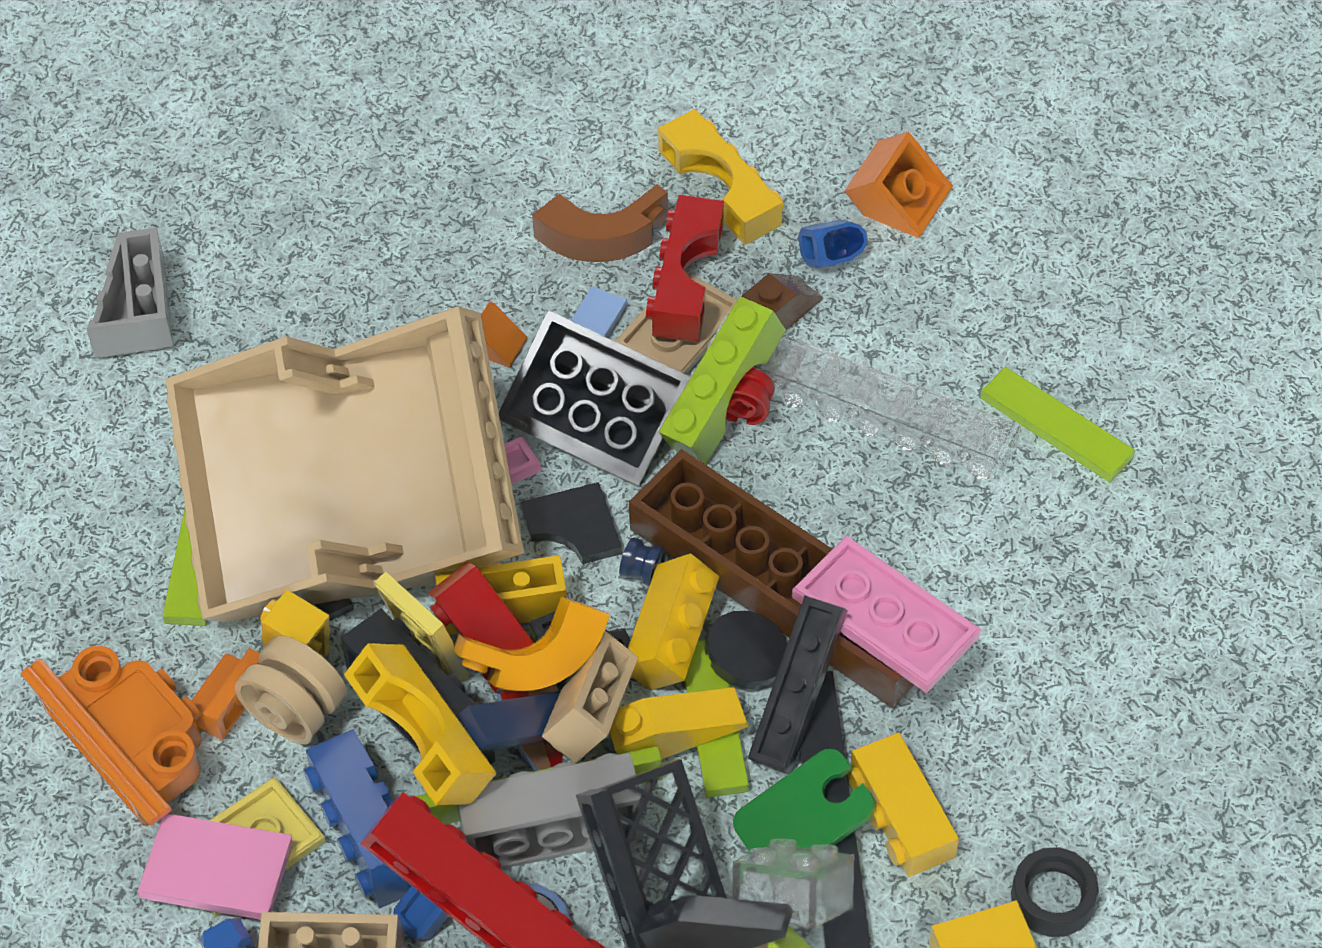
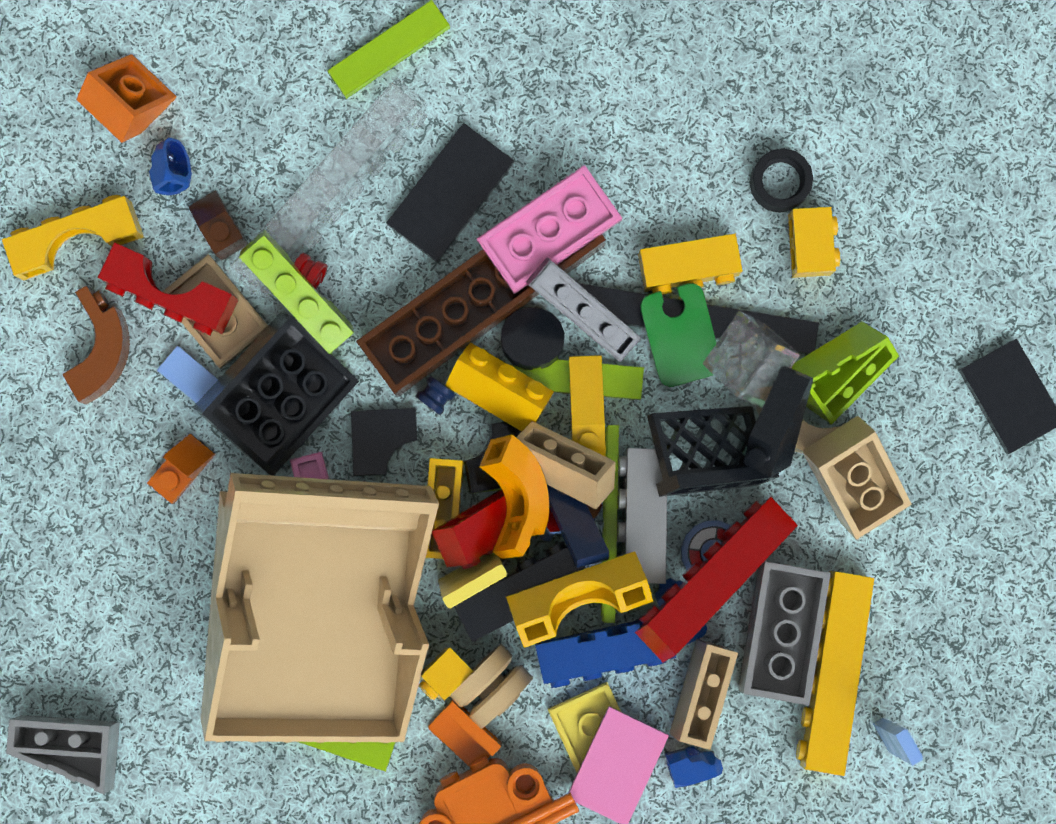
camera: 80 degrees left, 30 degrees up
(904, 526) = (450, 192): none -> black tile

